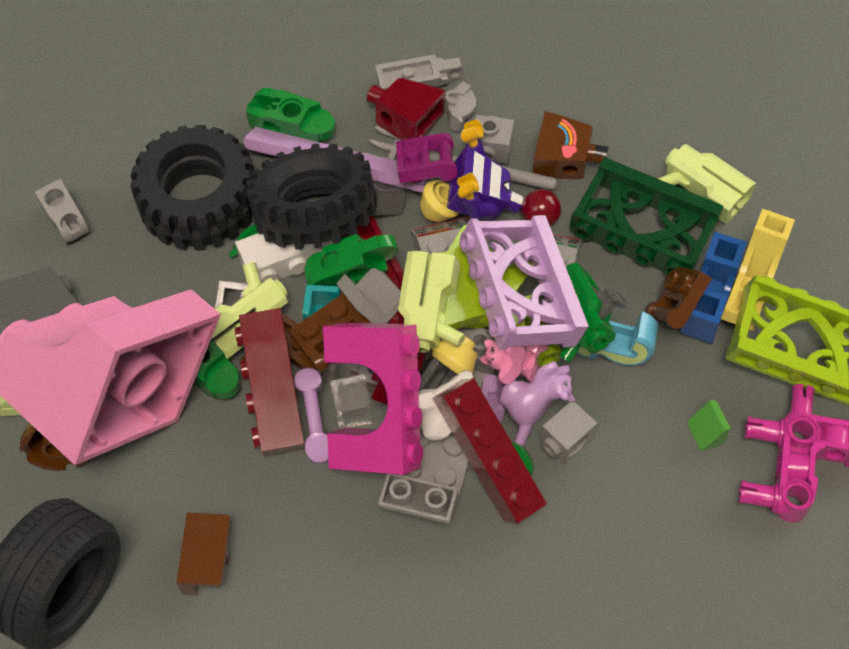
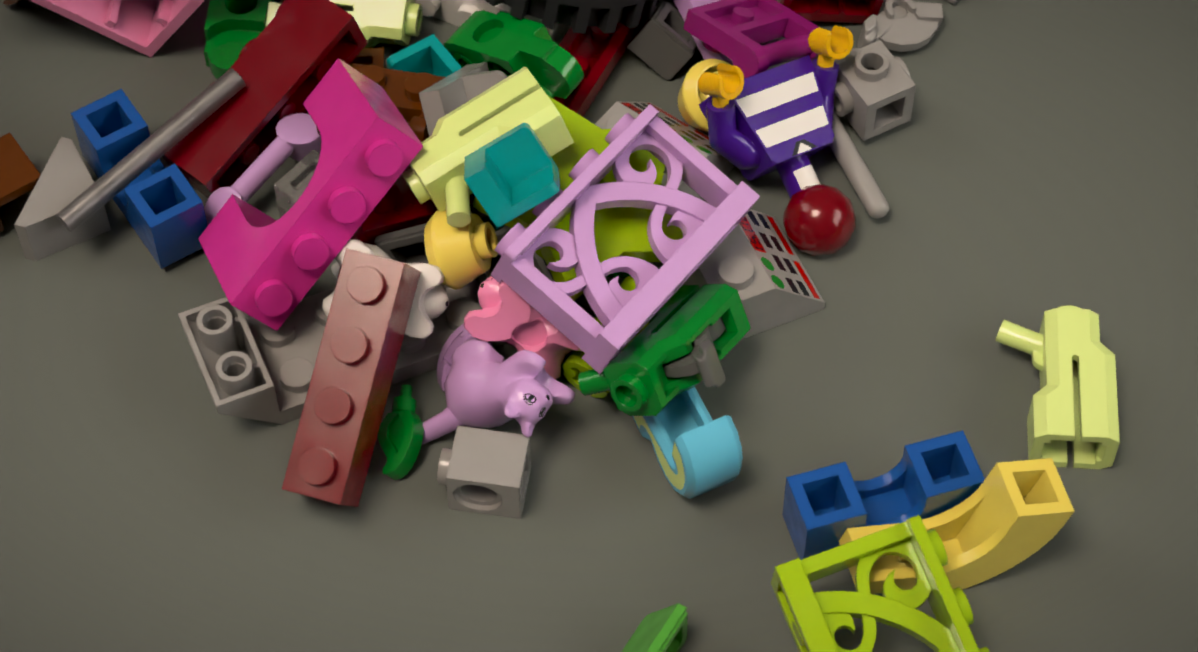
camera: 50 degrees right, 5 degrees down
(243, 470) = (157, 202): none -> blue arch
(248, 515) = (57, 186): none -> light grey slope
(267, 453) = (150, 150): none -> flat silver bar
(466, 299) = (511, 174): none -> teal panel
(565, 148) = (946, 183): reddish brown torso -> none
(647, 248) = (957, 286): dark green fence -> none
(680, 287) = (820, 448): reddish brown plate -> none

